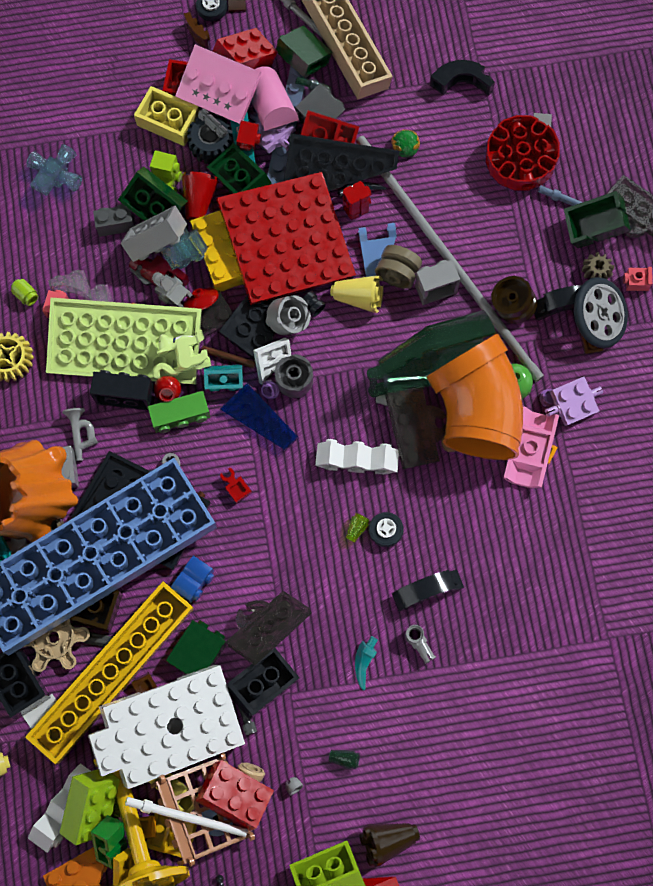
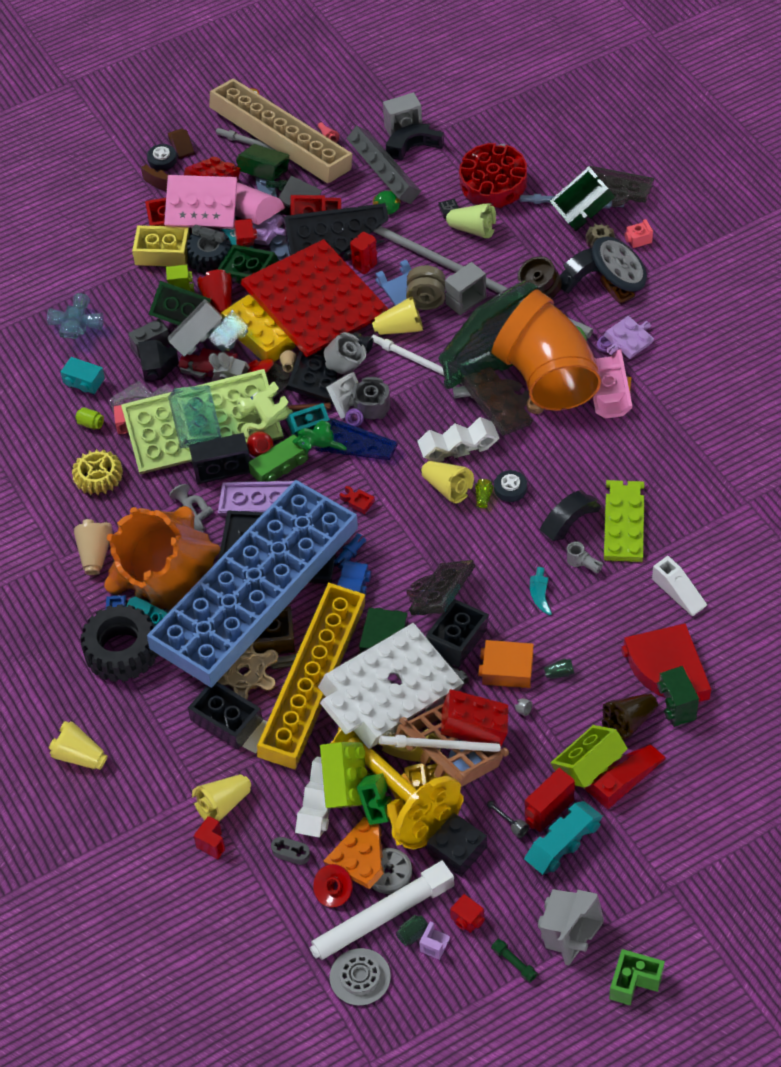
camera: 20 degrees left, 20 degrees down
(15, 854) = (291, 849): none -> dark grey beam
(35, 240) = (82, 375): none -> teal brick
(107, 251) = (157, 359): none -> black slope
(111, 341) = (194, 415): none -> clear light blue brick
(141, 444) = (250, 495): none -> lavender tile
(204, 542) = (350, 550): none -> blue pin
(223, 405) = (319, 437): none -> green animal
(233, 299) = (288, 360): none -> tan cone
(297, 732) = (506, 664): none -> orange brick
(327, 500) = (449, 479): none -> light yellow cone
(338, 316) = (389, 345): none -> white bar
(383, 41) = (328, 132): none -> coral cone
(419, 98) = (383, 165): none -> dark grey brick
(440, 845) = (680, 696): none -> dark green brick
(449, 797) = (662, 651): none -> red brick
(462, 43) = (401, 112): none -> light grey brick
(464, 173) = (446, 206): none -> black tile
(478, 613) = (624, 521): none -> lime hinge
(480, 200) = (473, 219): none -> yellowish green cone
(497, 715) = (678, 585): none -> white slope

